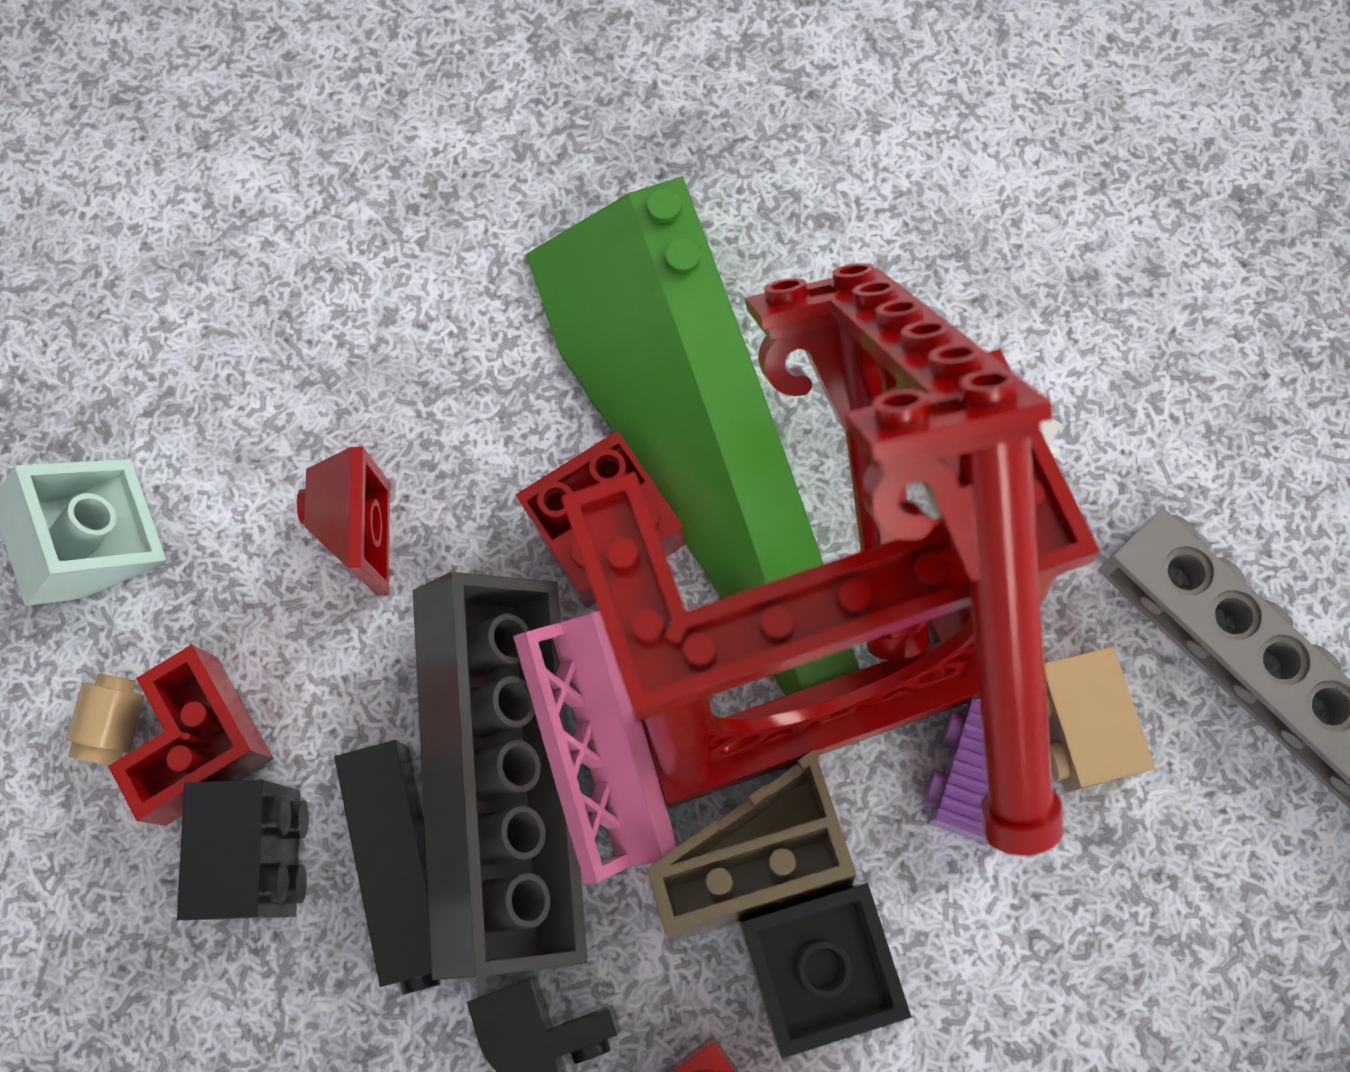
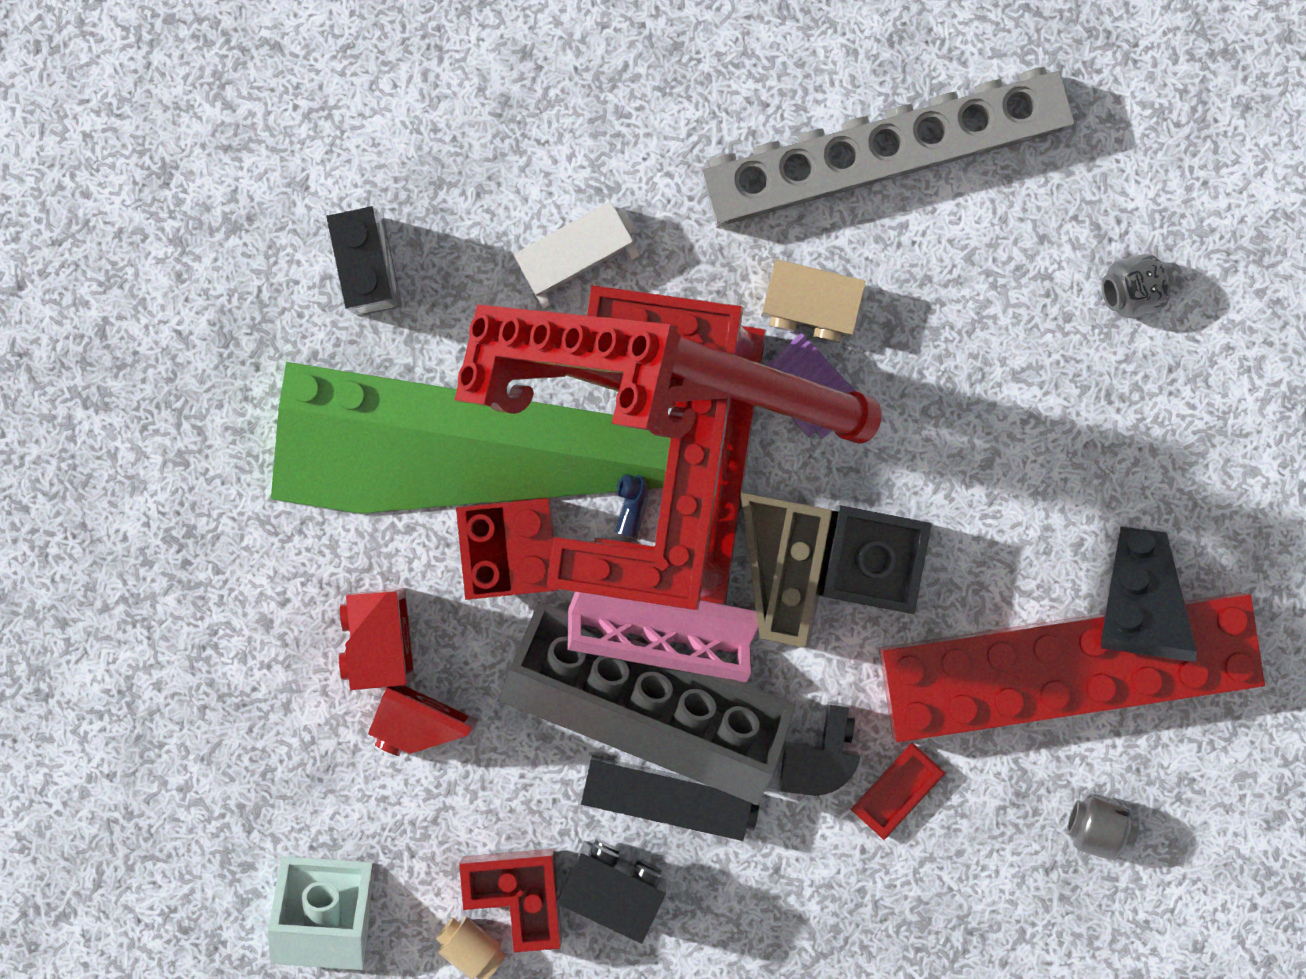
camera: 65 degrees left, 15 degrees up
(420, 427) = (378, 641): none -> red slope
(838, 196) = (364, 261): none -> black brick

